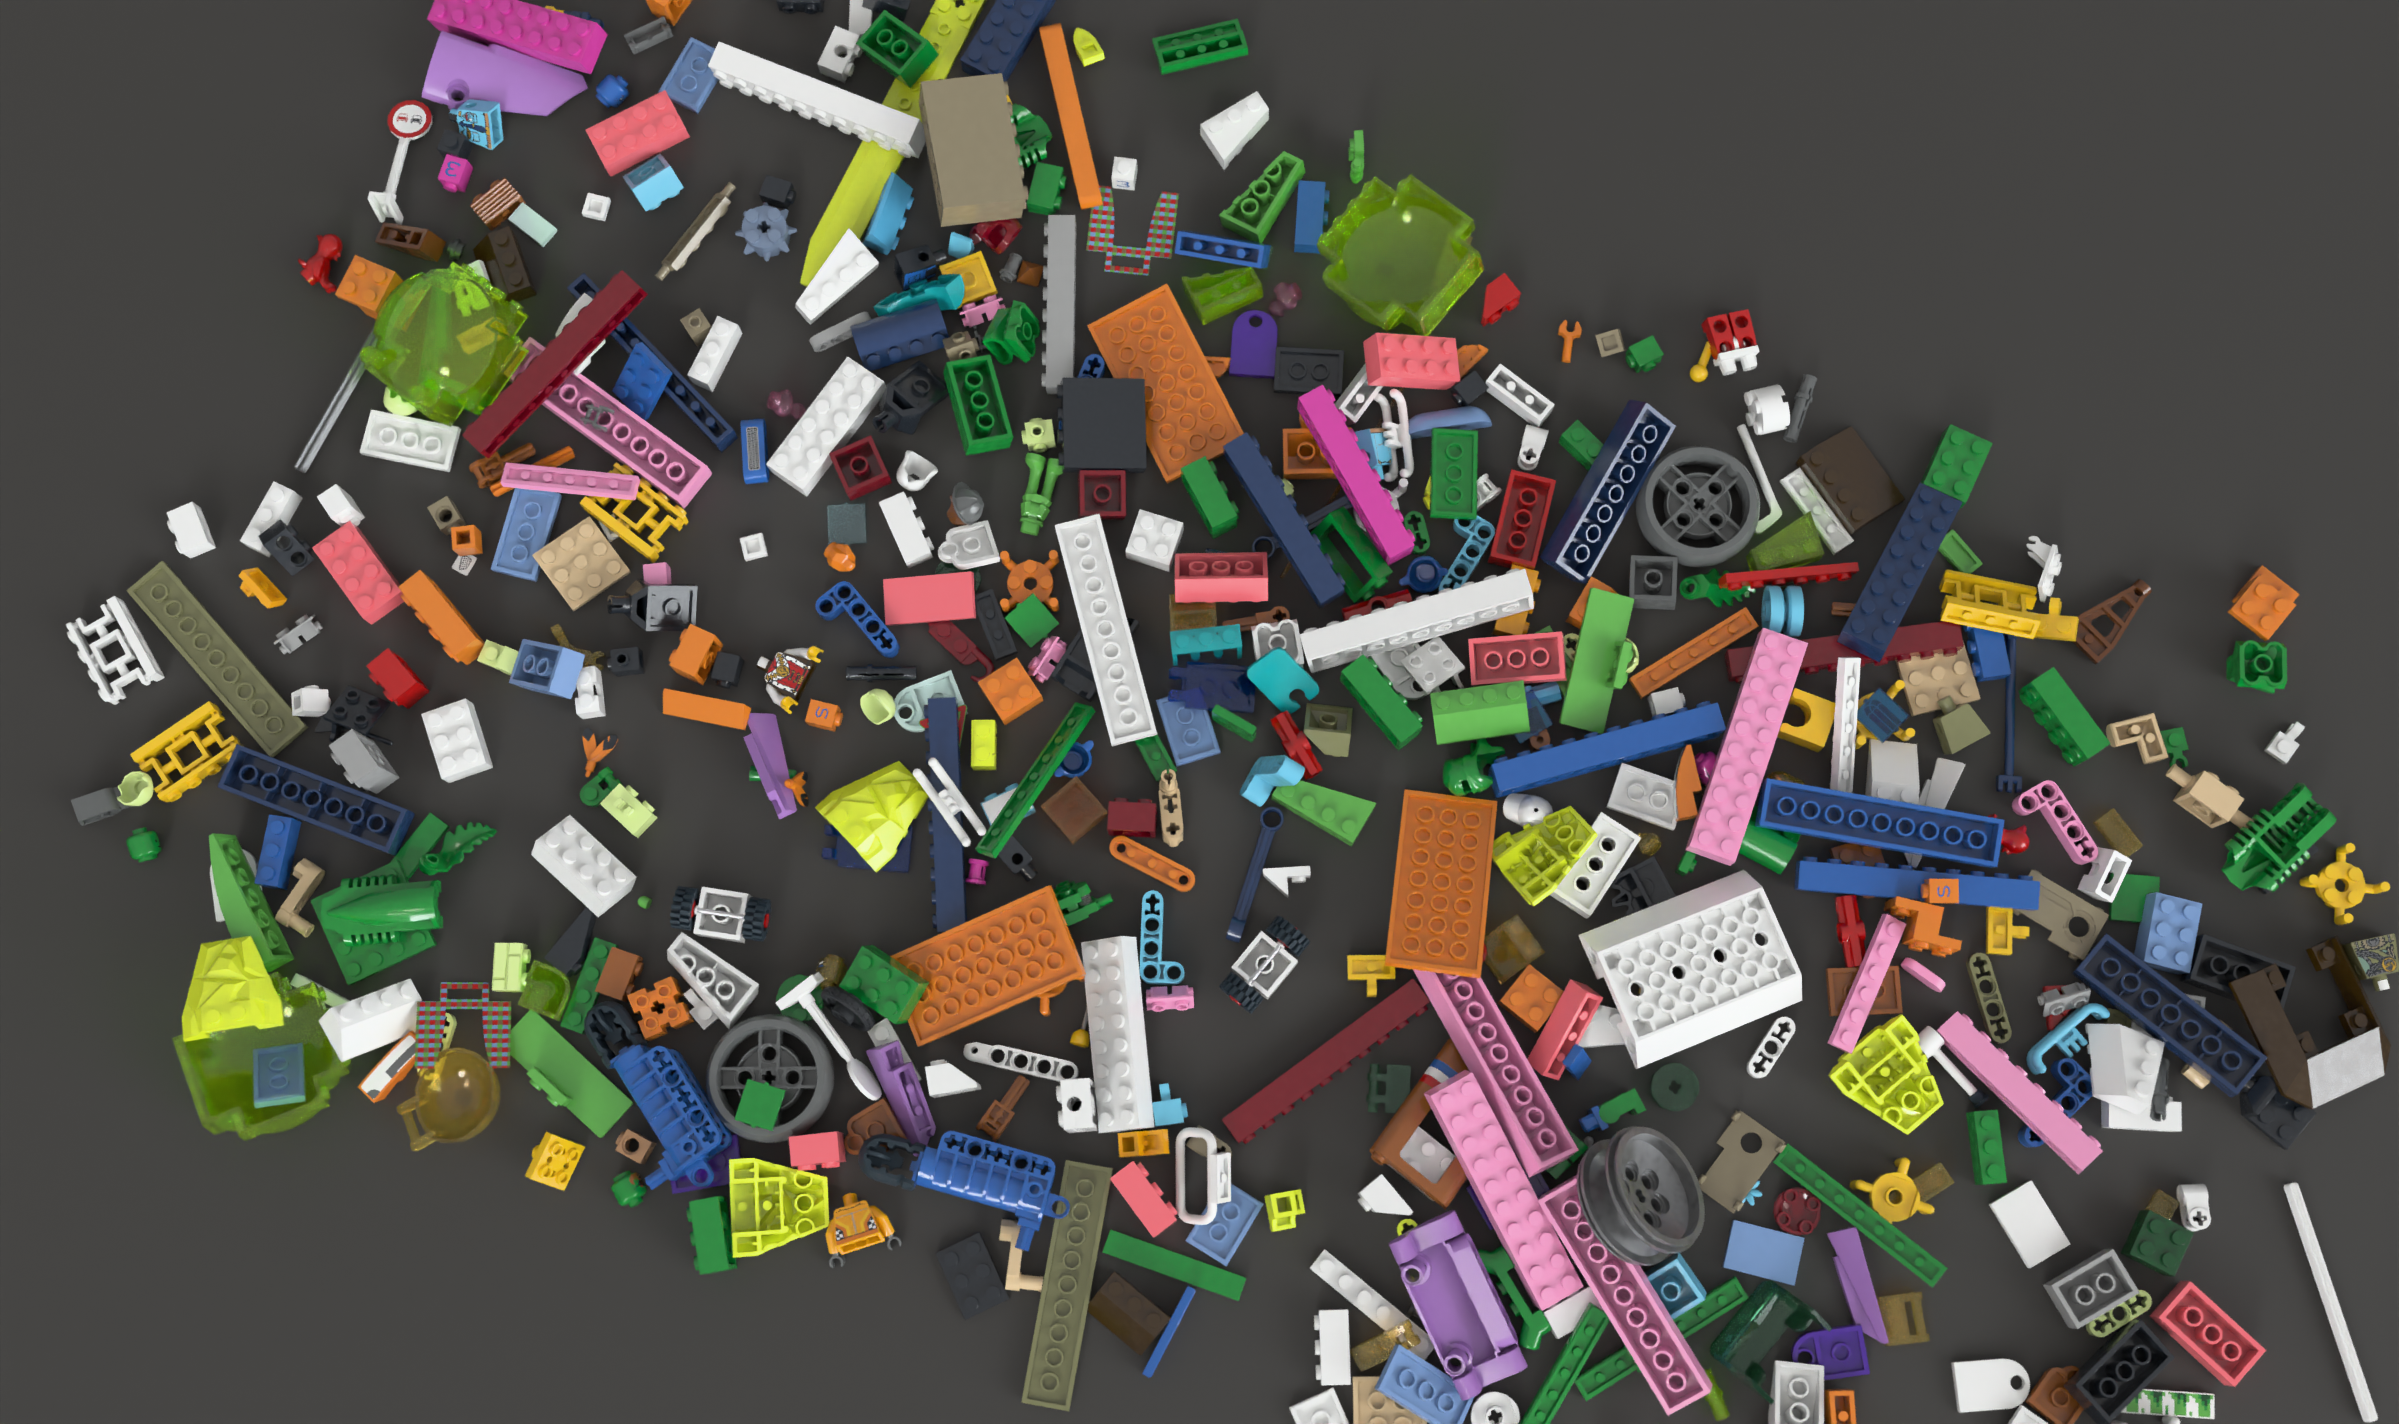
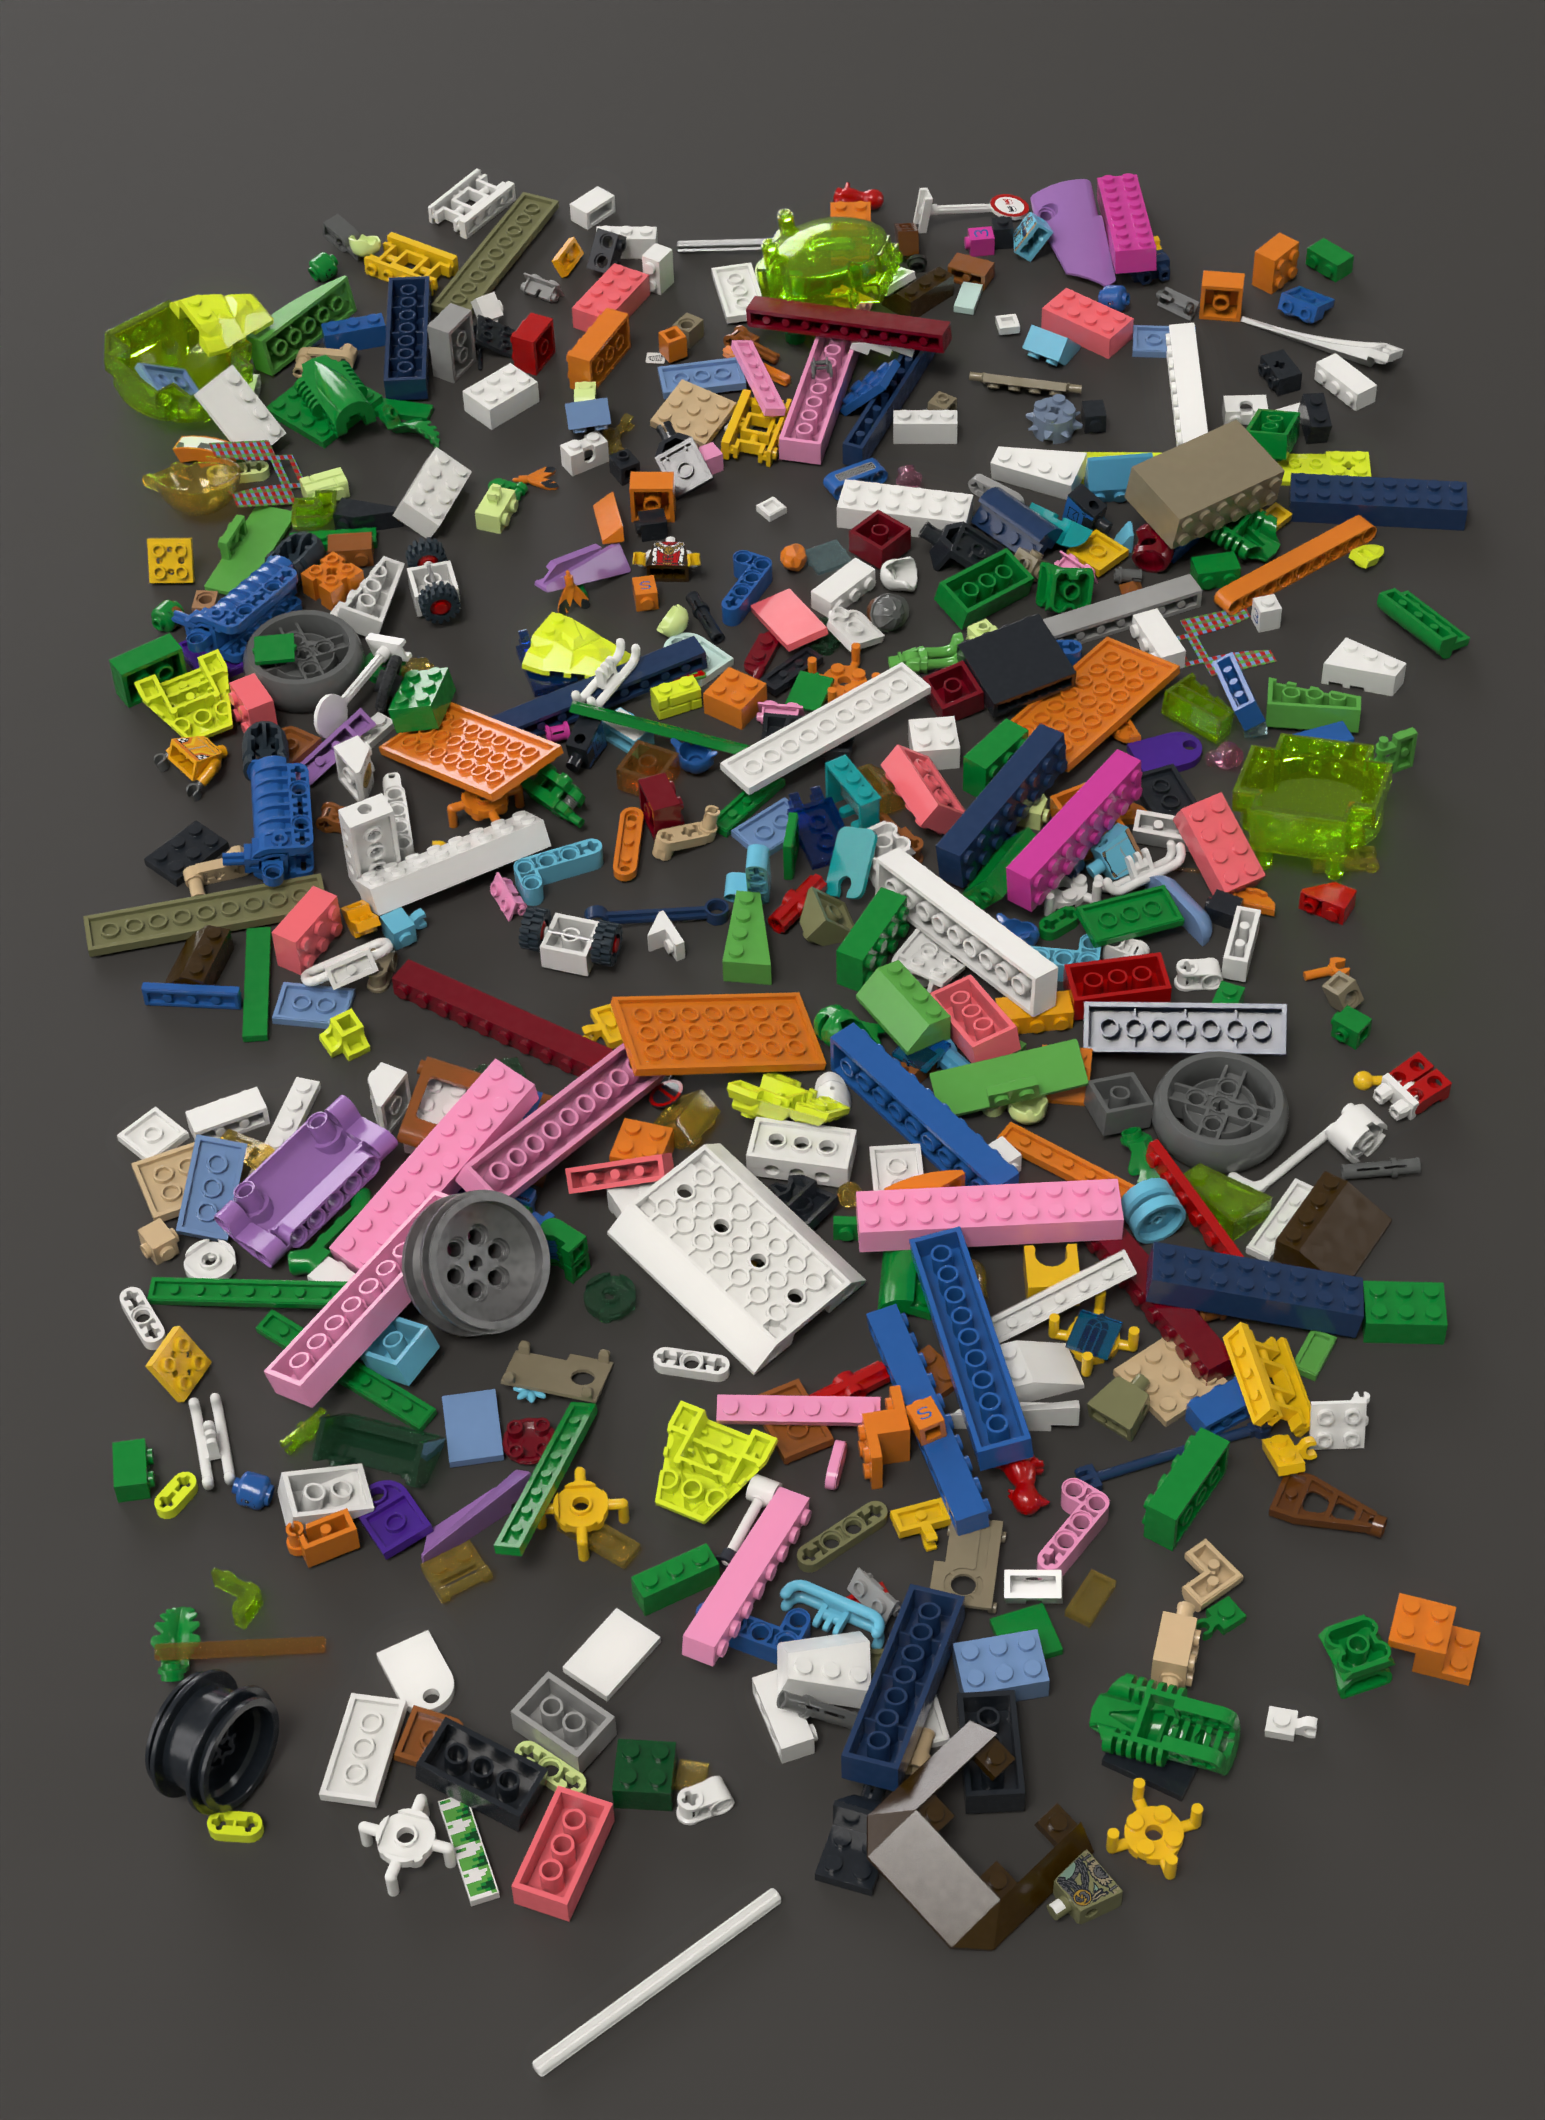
camera: 65 degrees right, 30 degrees down
(1112, 283) = (1157, 637): none -> white brick
(1576, 1061) = (594, 1199): blue tile -> none

